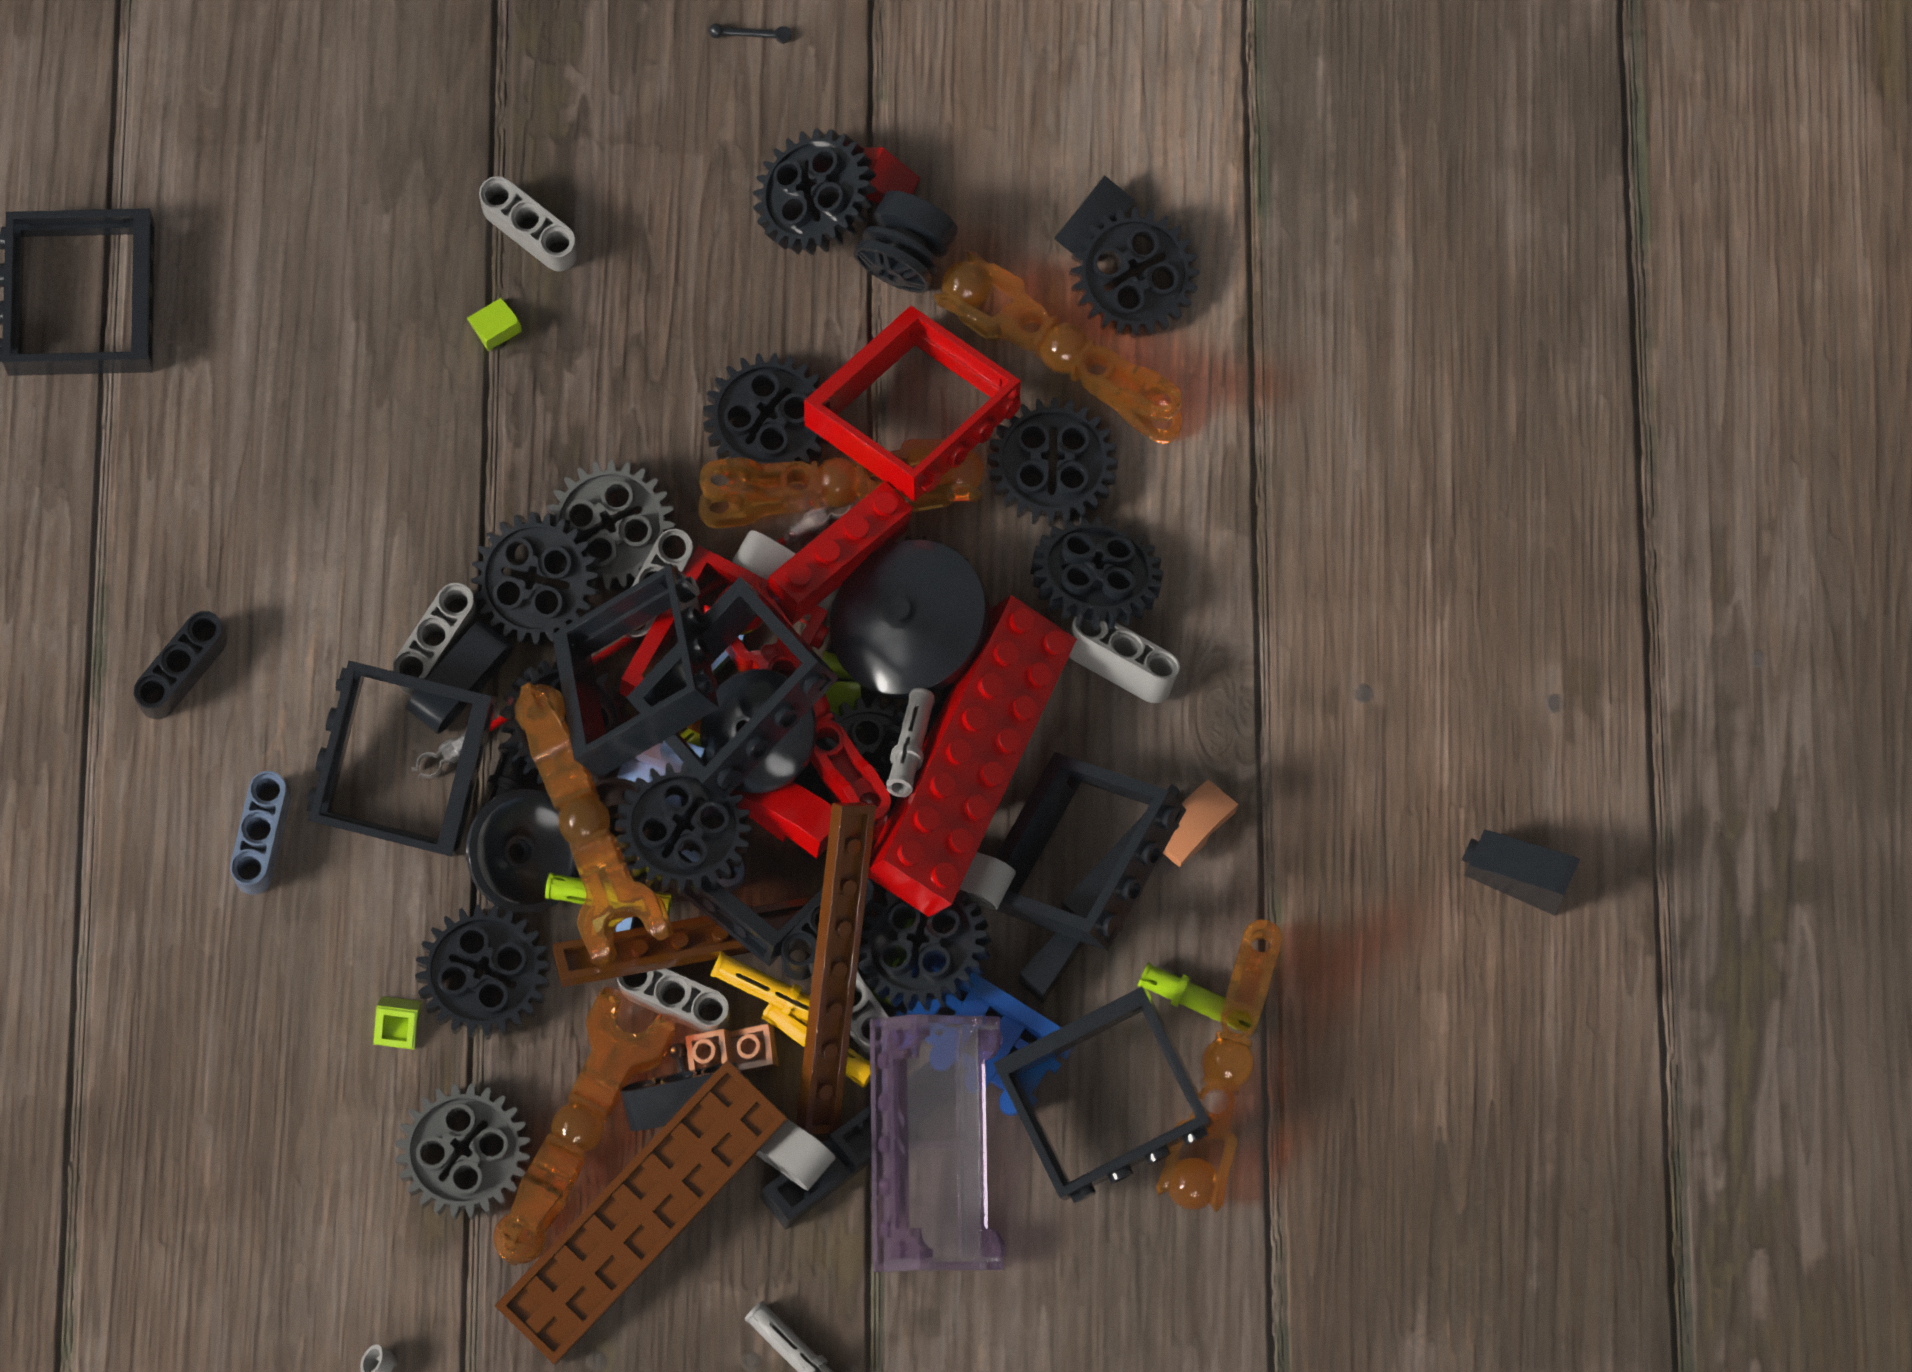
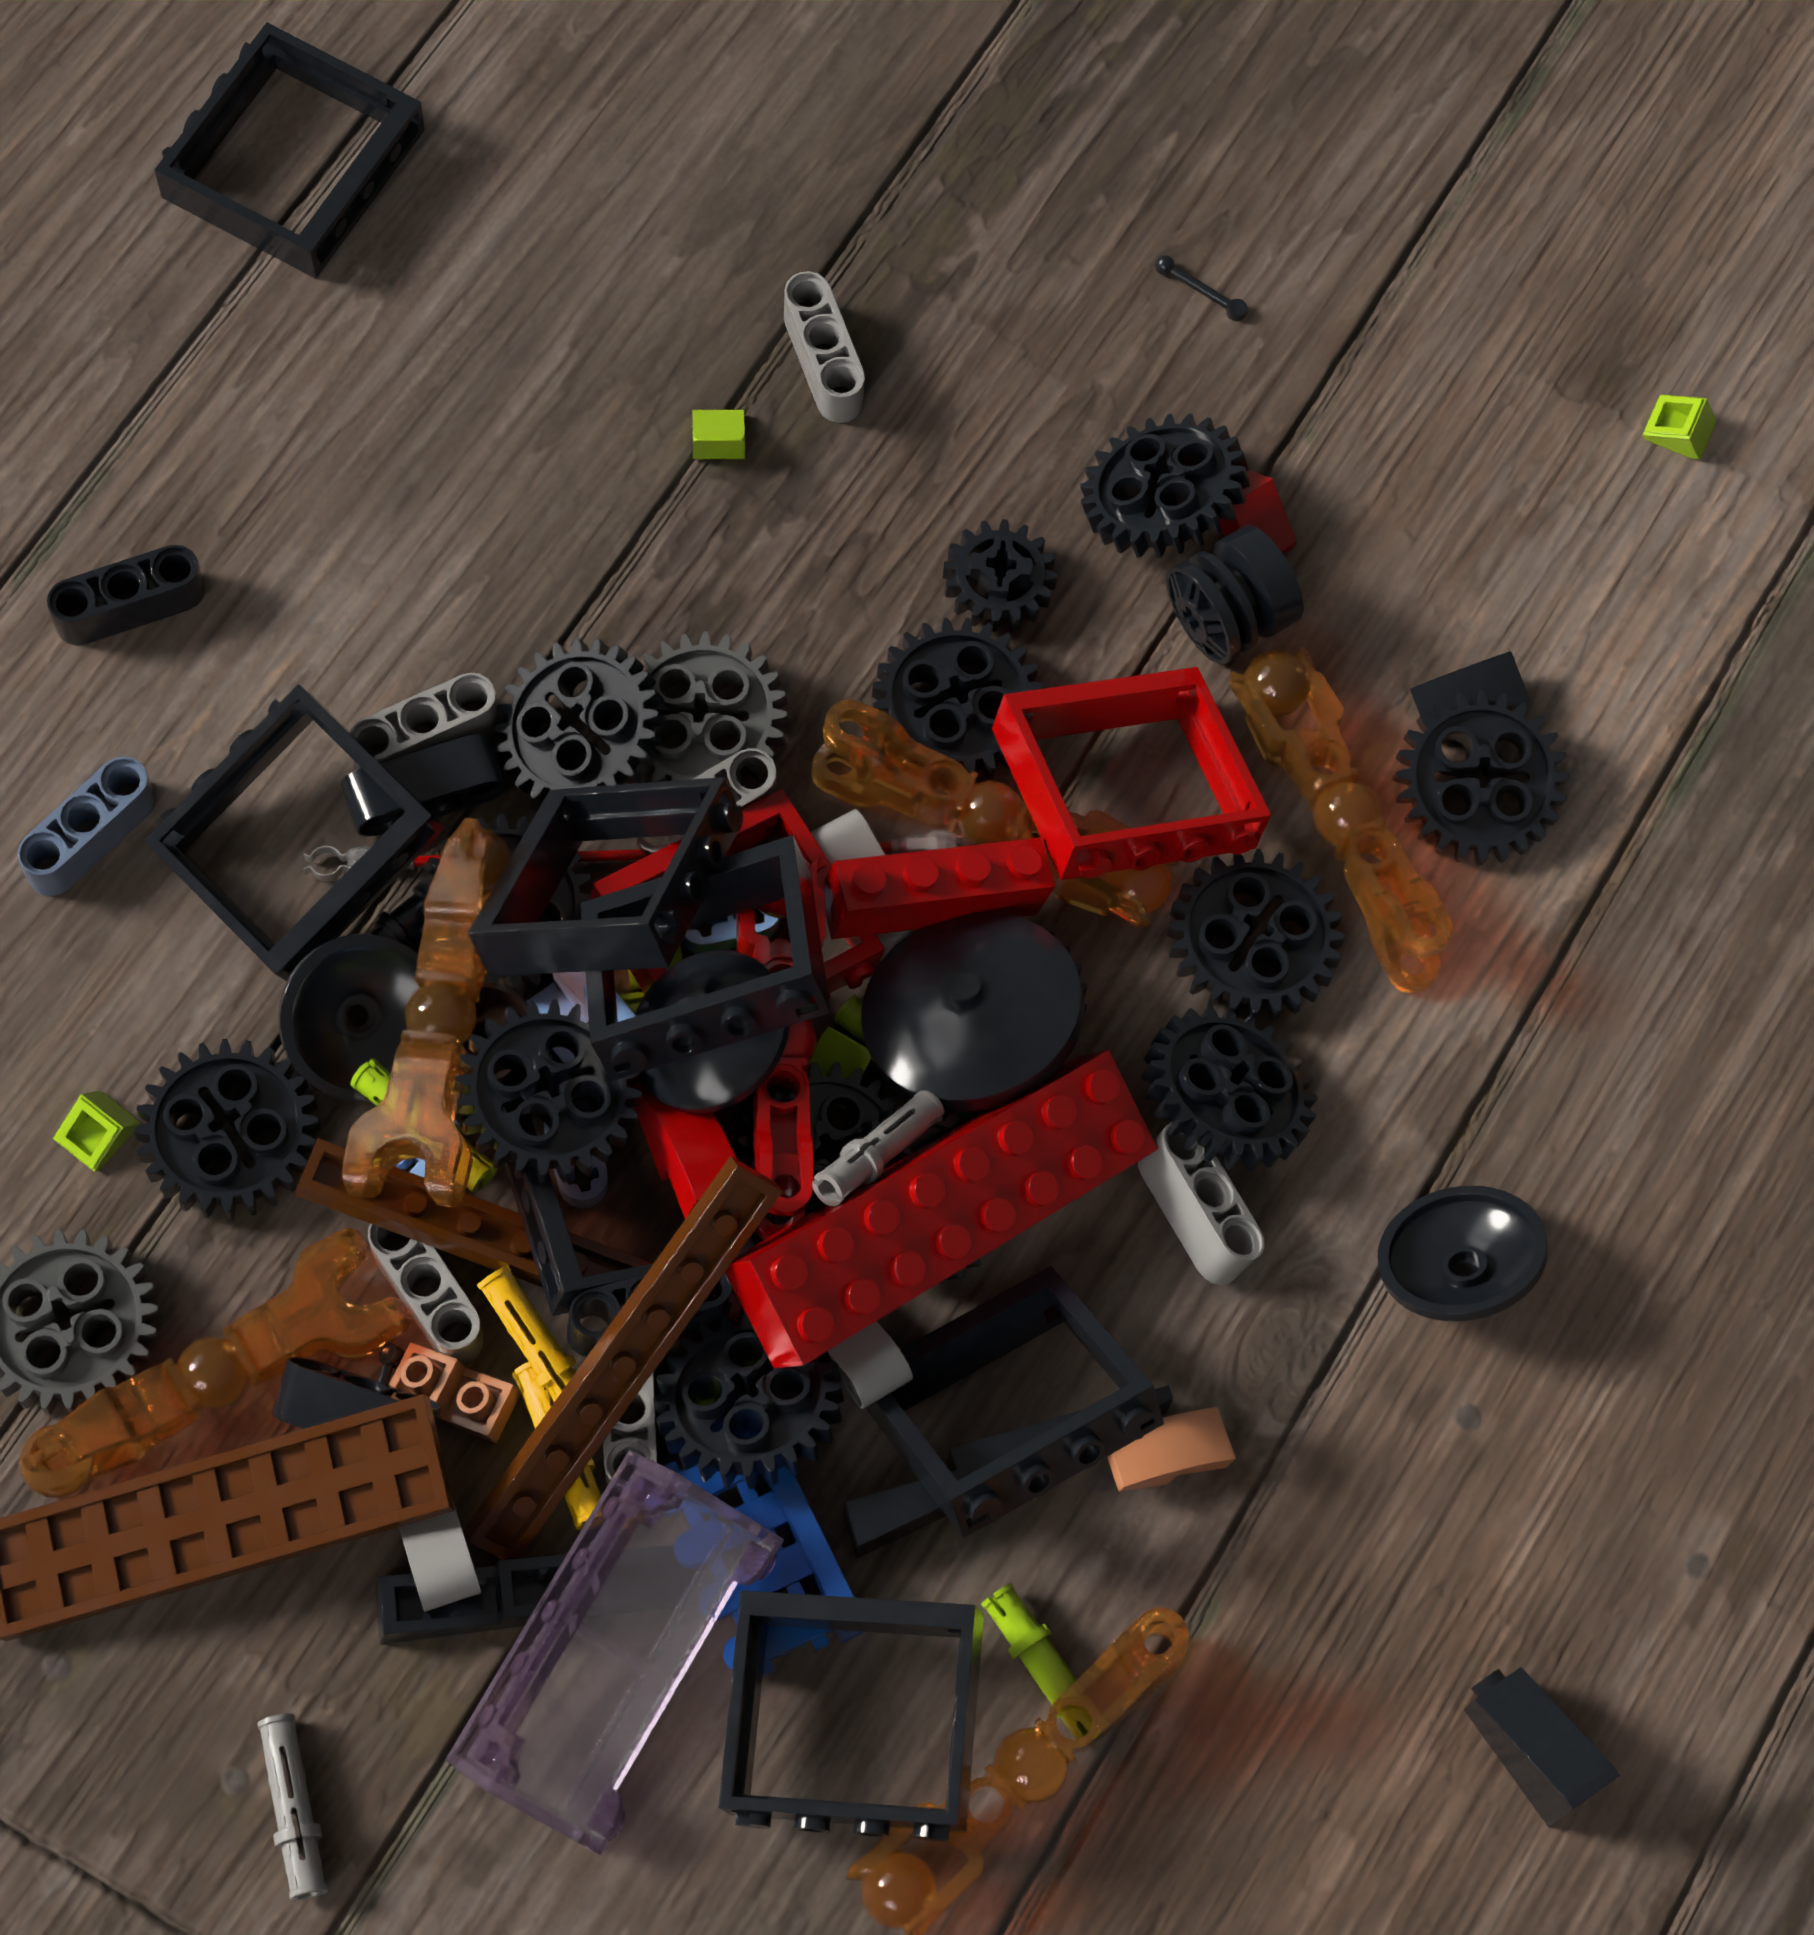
camera: 25 degrees right, 5 degrees down
(755, 307) = (1025, 571): none -> black gear
(1293, 581) = (1462, 1253): none -> black dish

